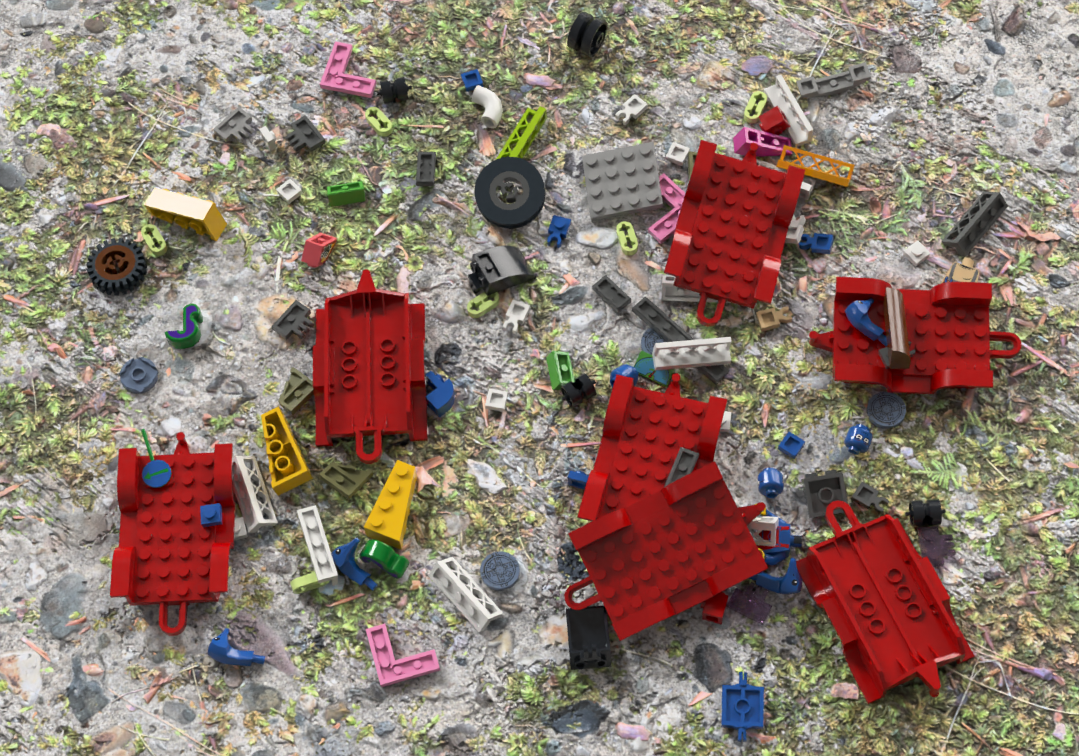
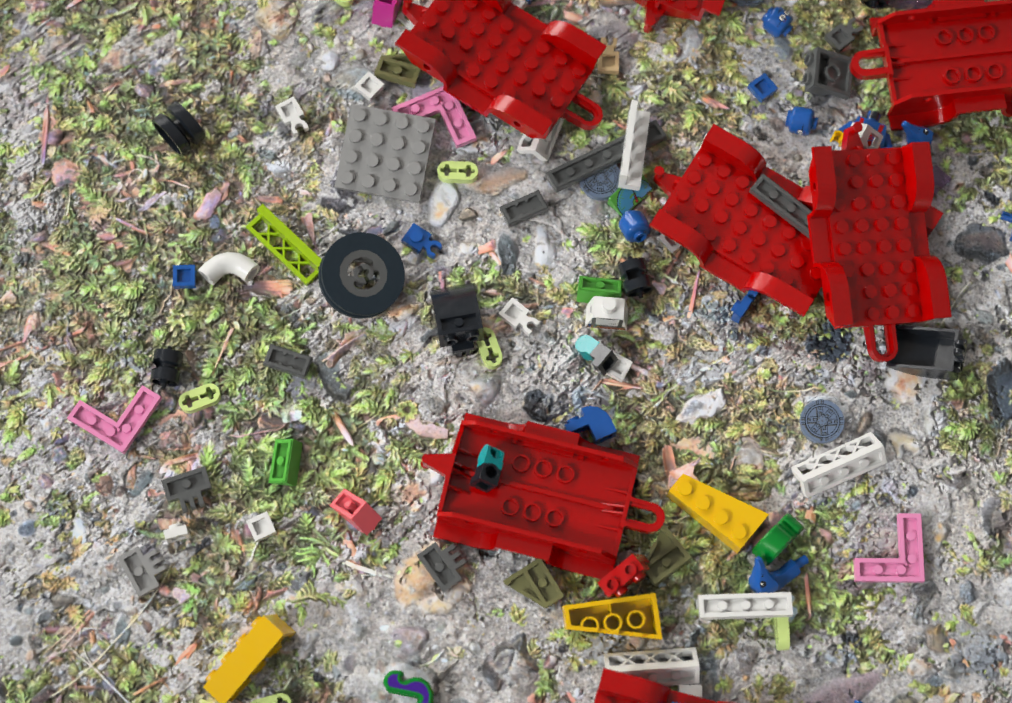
camera: 80 degrees left, 10 degrees up
(315, 443) = (623, 575): none -> red plate
(372, 318) = (488, 469): none -> black leg
(500, 379) = (591, 349): none -> leg
(538, 374) = (607, 313): none -> white torso

